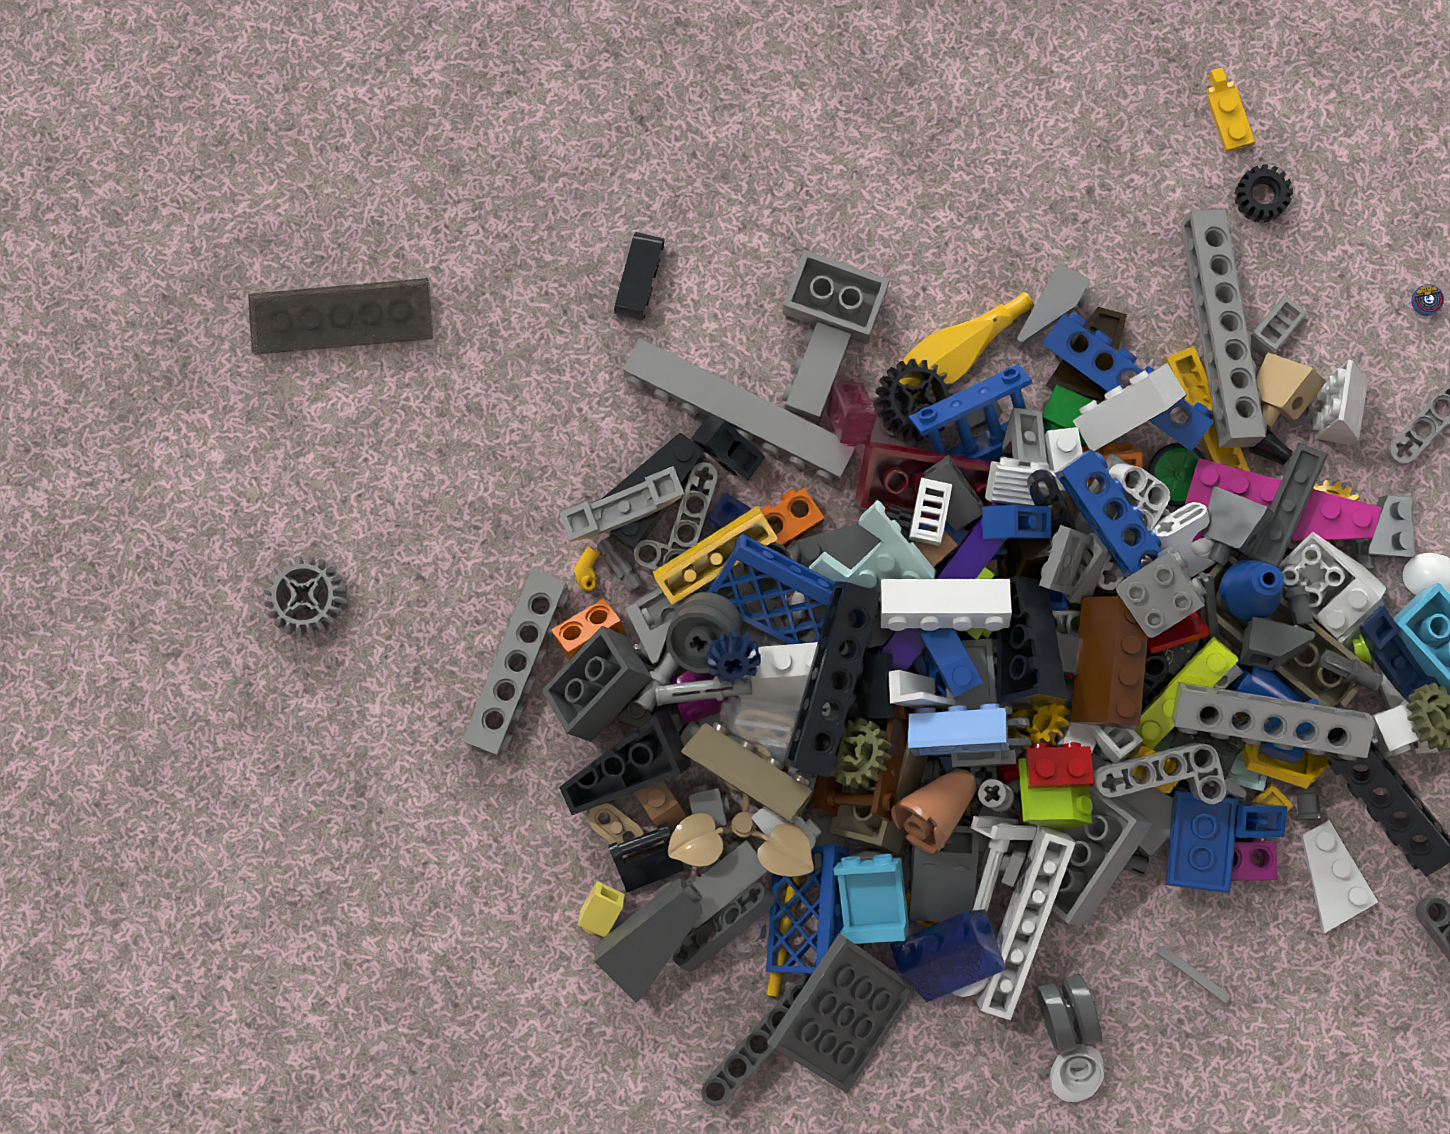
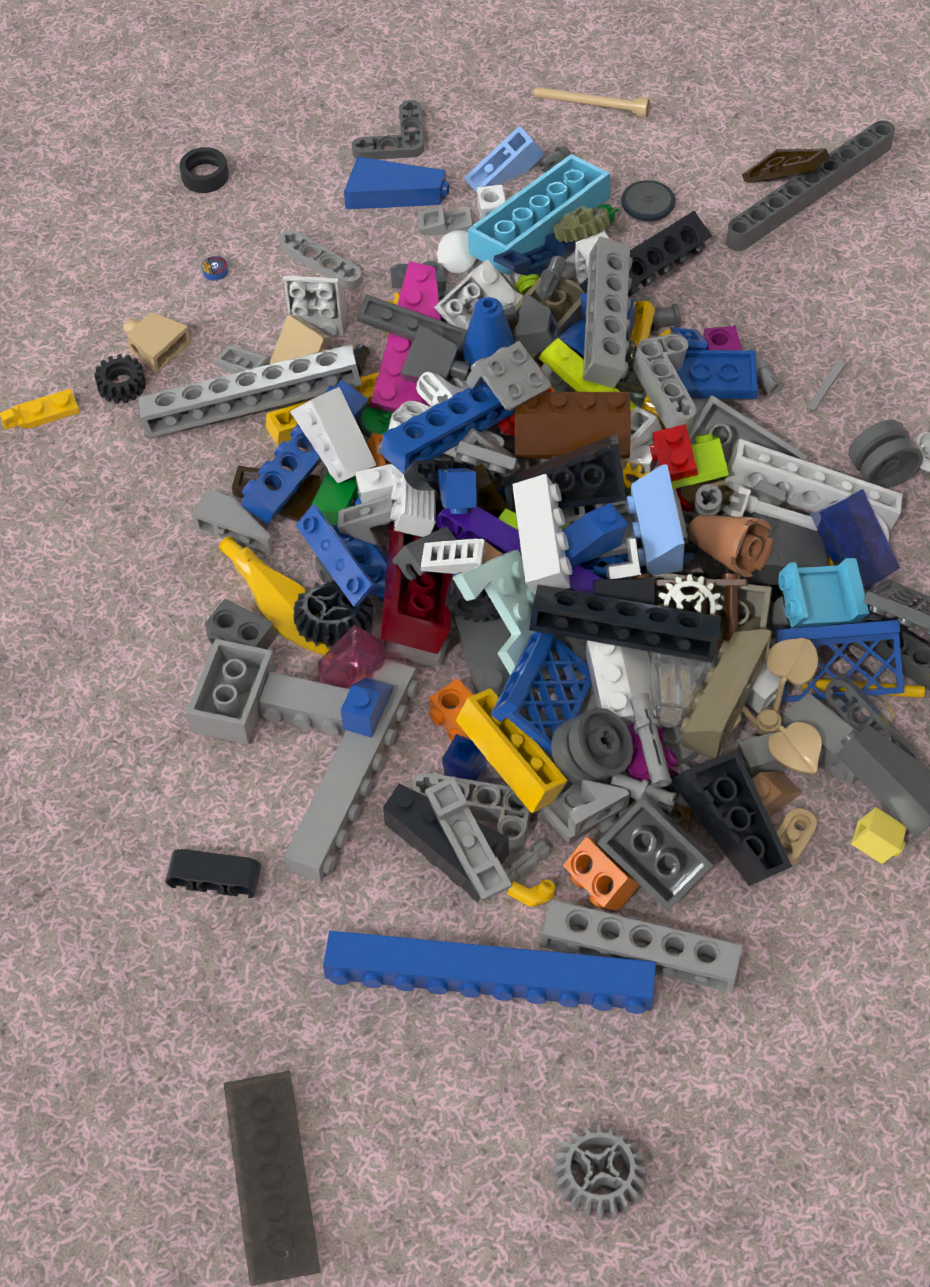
camera: 95 degrees left, 25 degrees down
(507, 520) = (489, 971): none -> blue brick
(646, 865) = (819, 802): black plate -> none
(728, 447) = (394, 763): black brick -> none
(733, 657) = (618, 701): dark blue gear -> none
(796, 423) = (365, 706): none -> blue slope
(916, 312) = (241, 626): none -> dark grey brick
(1219, 902) = (765, 376): none -> light grey pin
(1316, 230) = (156, 339): none -> tan torso
(1335, 878) = (723, 298): white wing -> none

